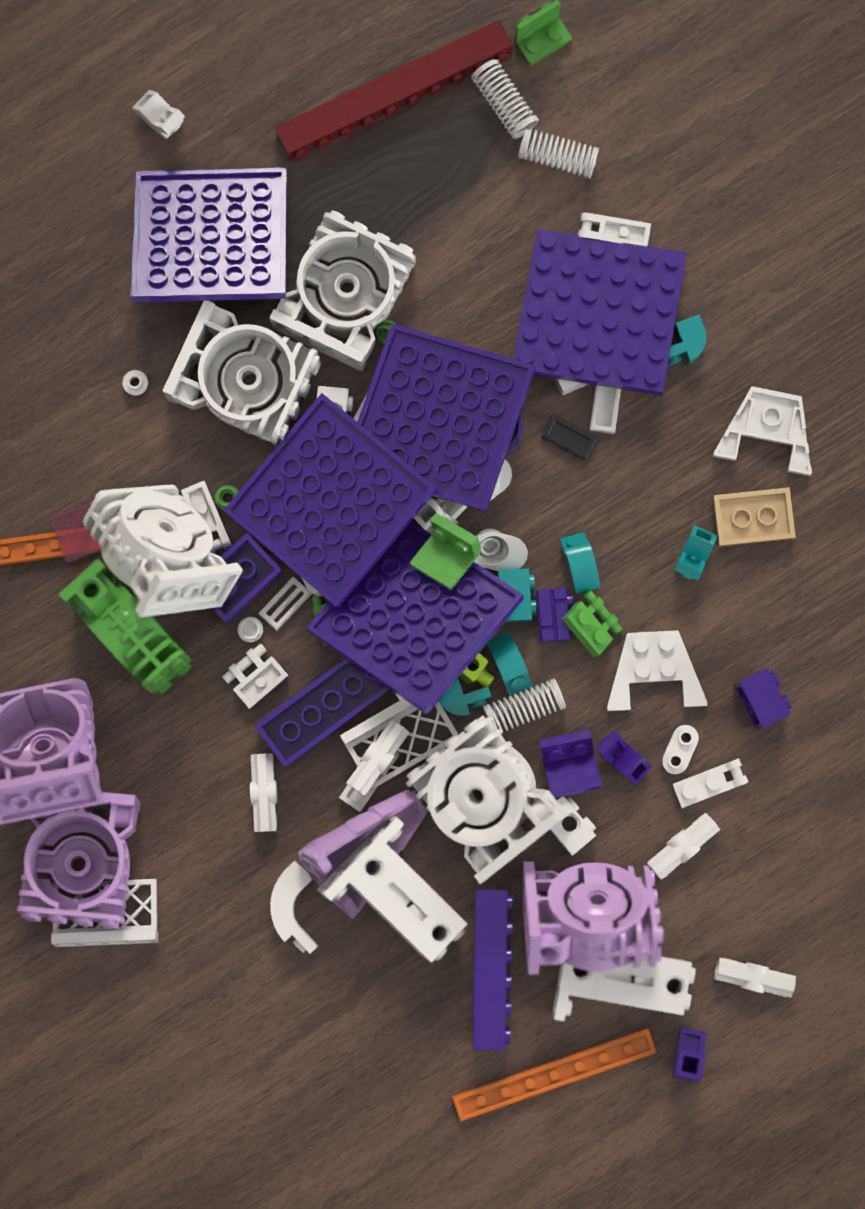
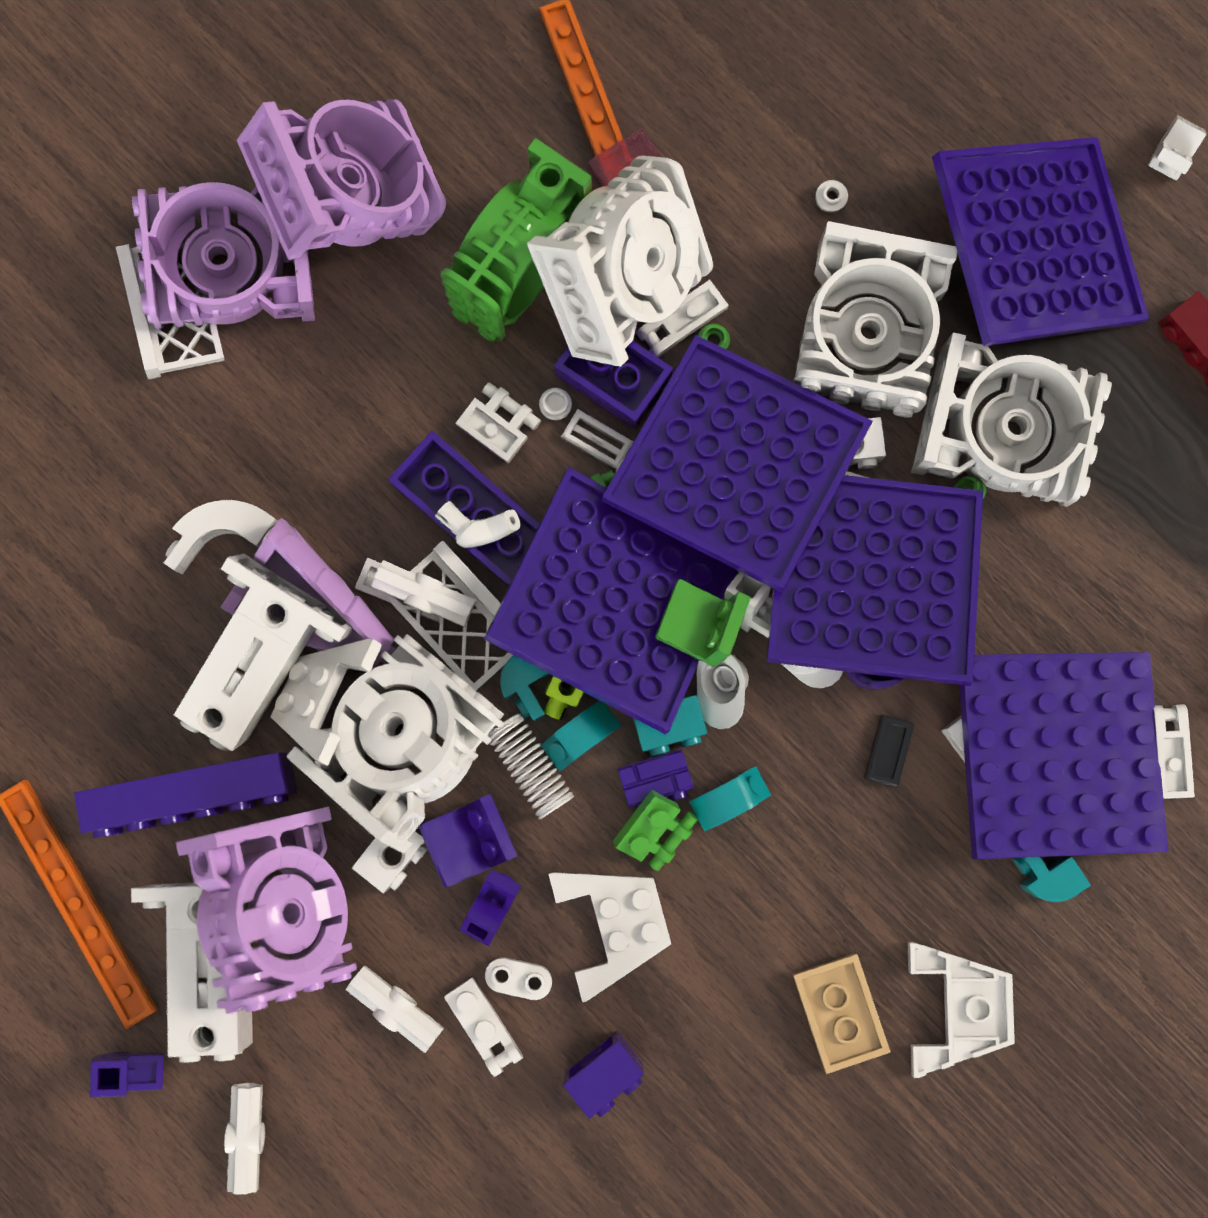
camera: 75 degrees right, 0 degrees up
(263, 792) = (354, 464): white piece -> none
(341, 706) = (479, 532): none -> white arm
(433, 858) = (311, 691): none -> white wing
(605, 409) = (936, 789): white tile -> none
(695, 553) = (775, 945): teal brick -> none

